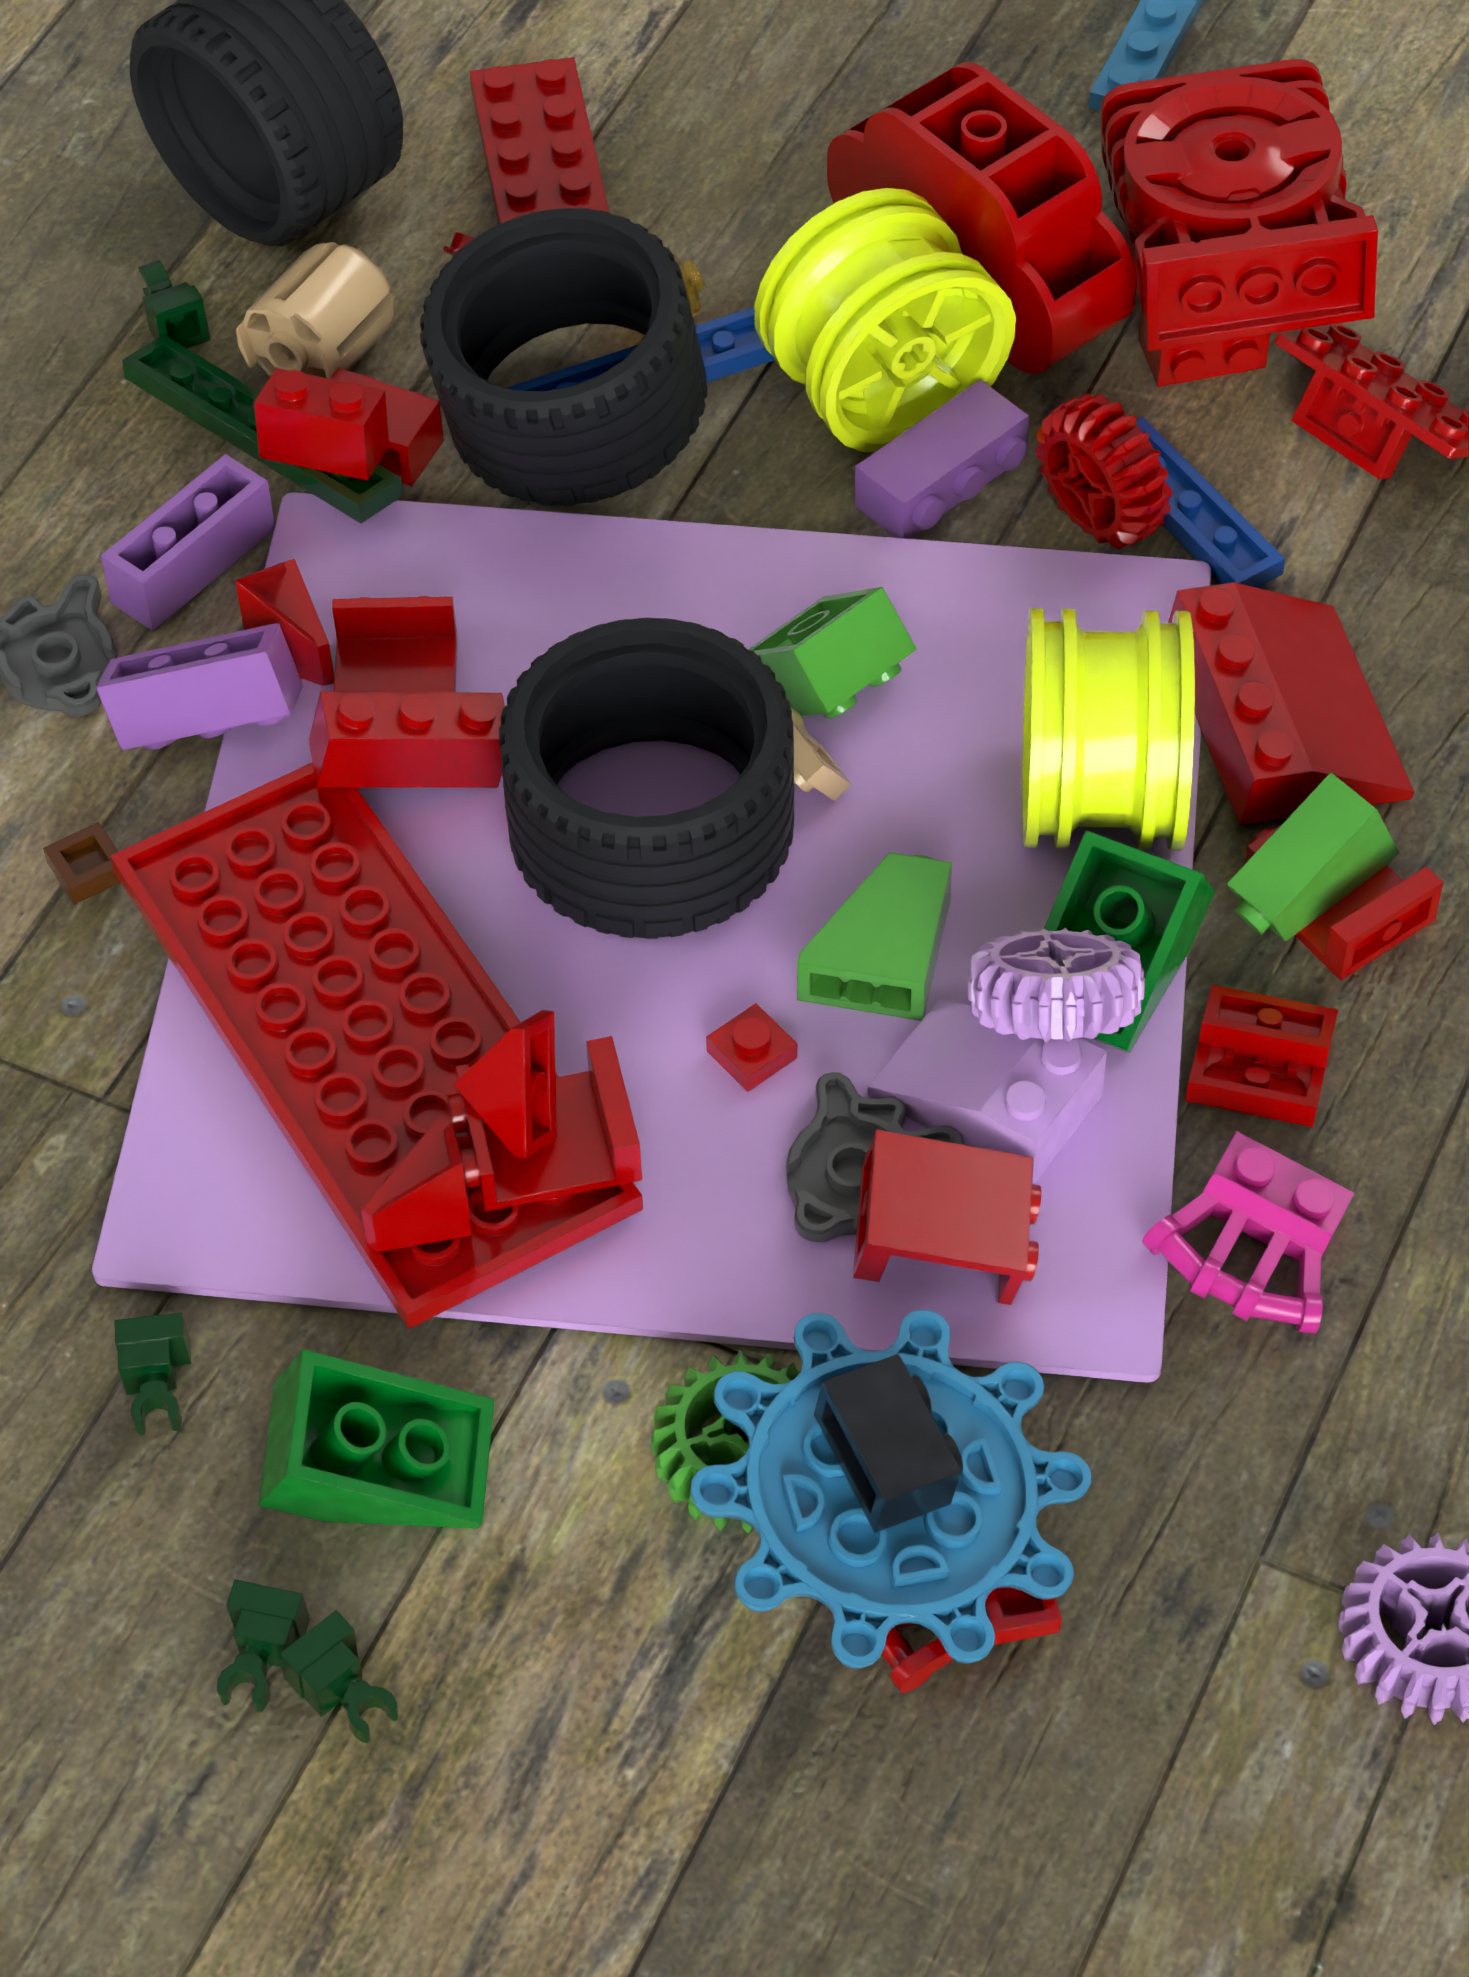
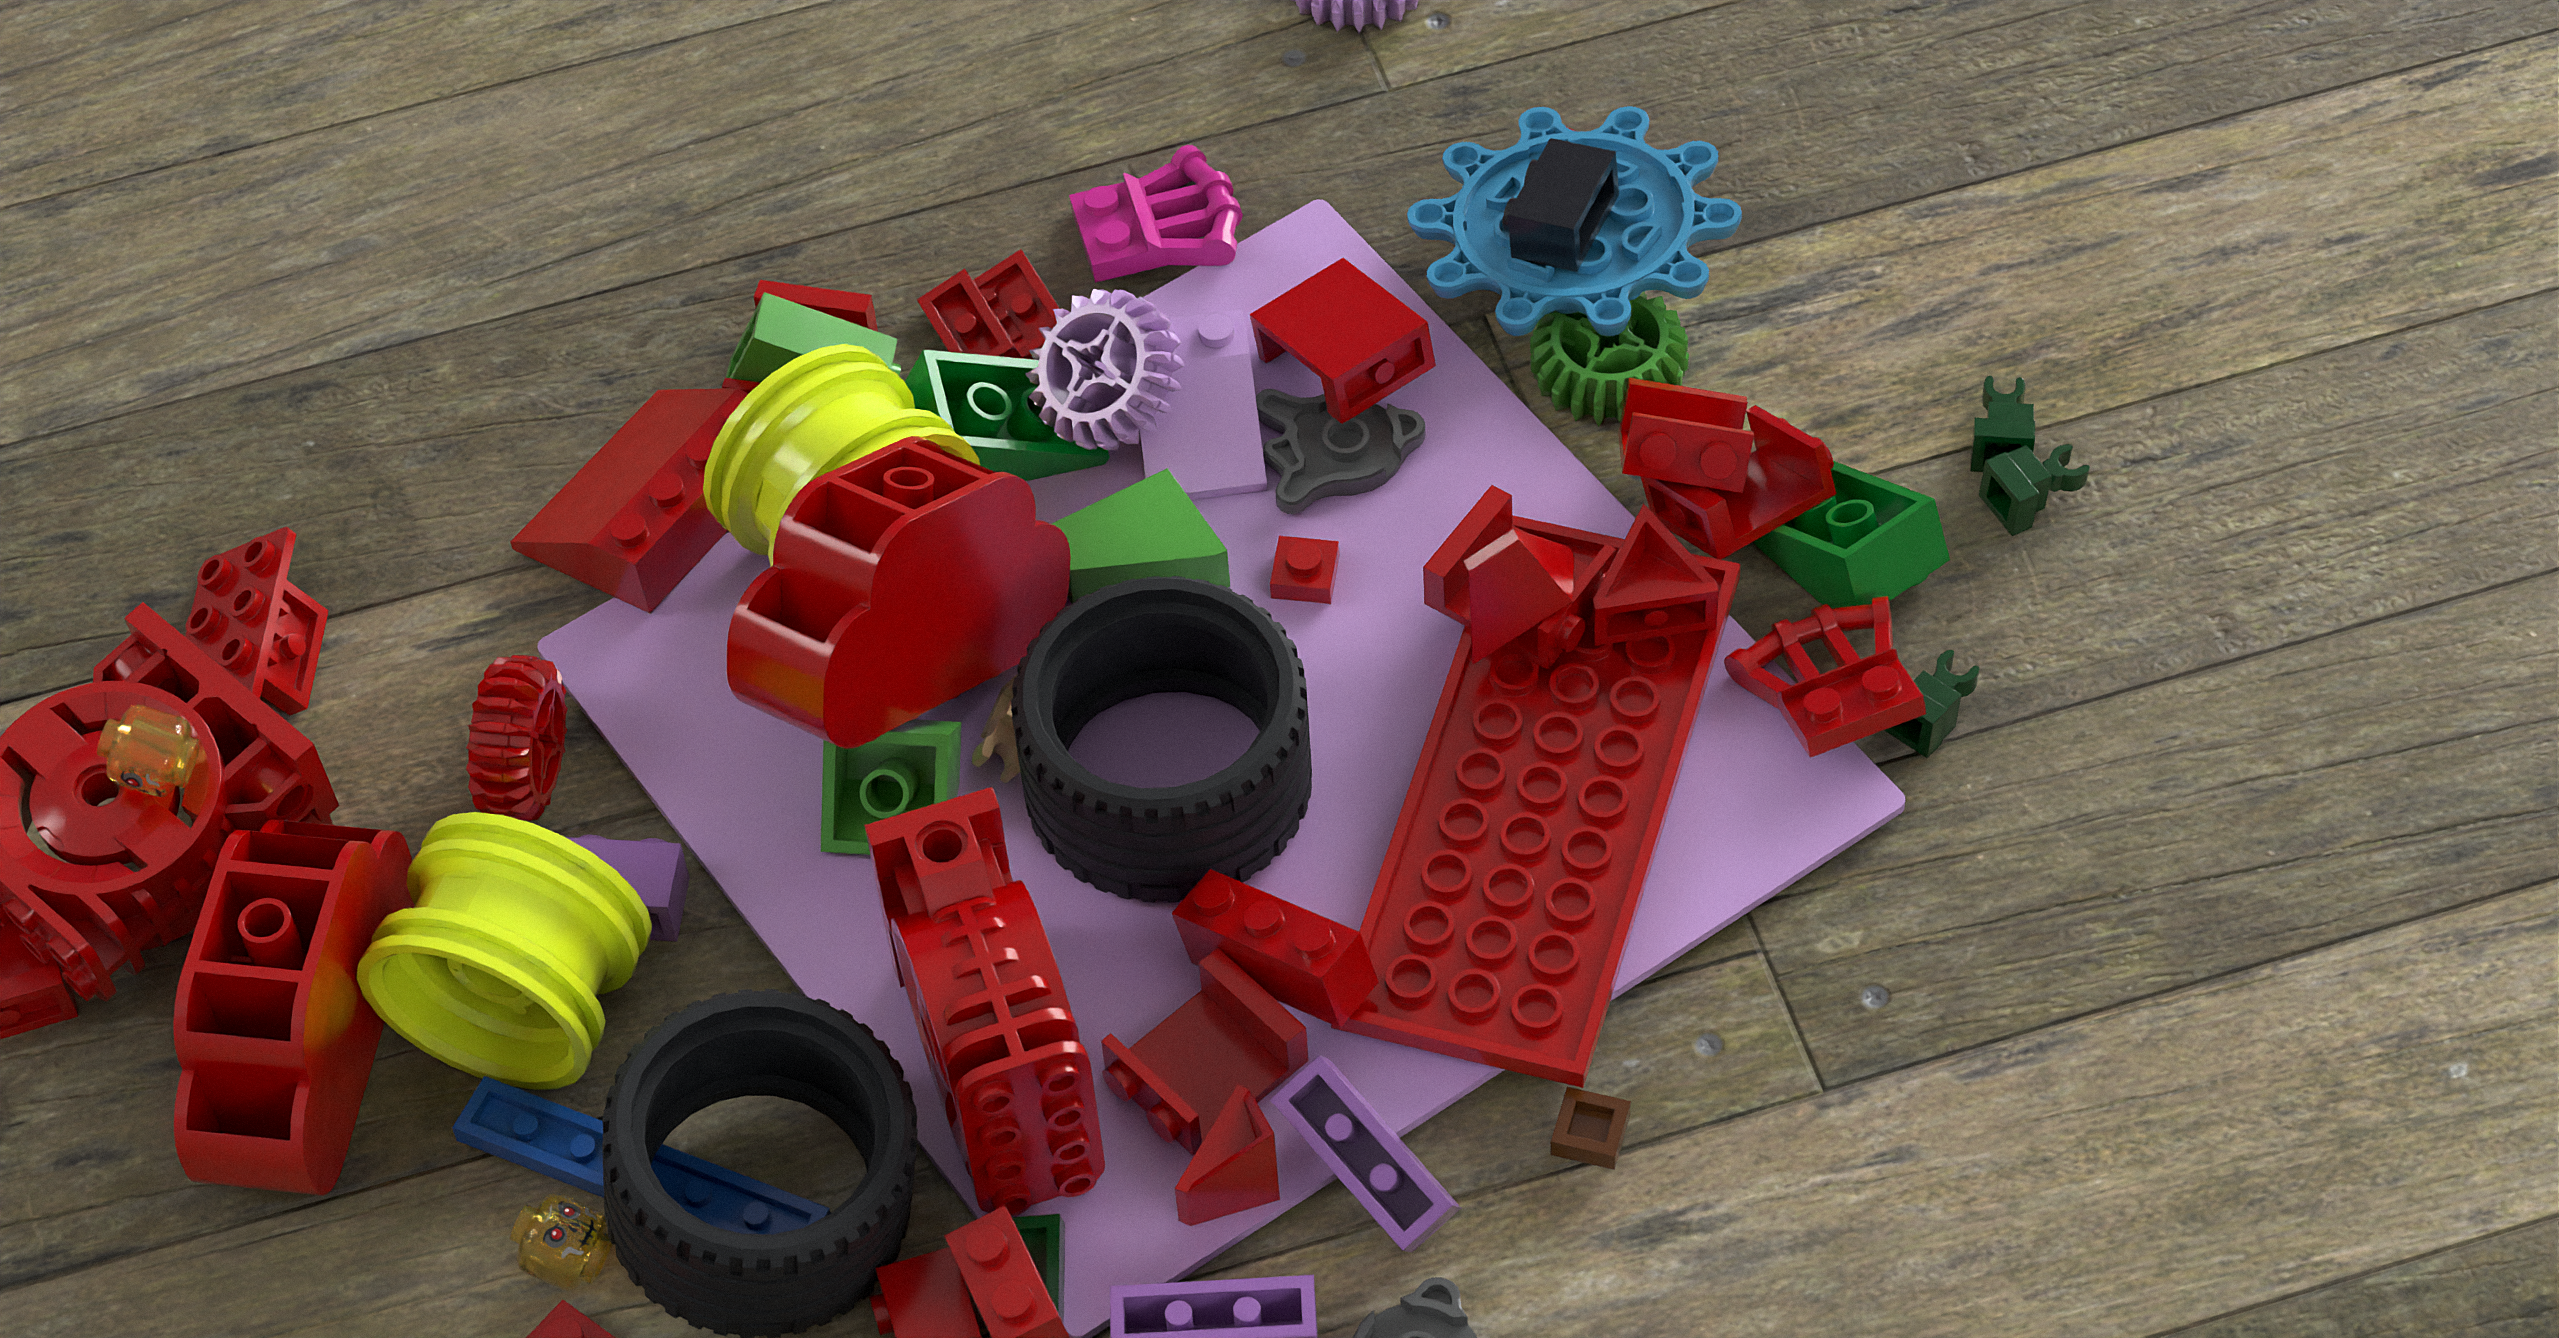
camera: 130 degrees left, 0 degrees up
(195, 1268) = (1841, 703): none -> red plate
(488, 1393) = (1782, 481): none -> red panel
(517, 495) = (987, 1003): none -> red brick
(563, 1371) = (1684, 435): none -> red panel
(924, 655) = (894, 592): none -> red brick
(1210, 524) = (507, 627): blue plate -> none
(1215, 156) = (149, 750): none -> clear yellow head

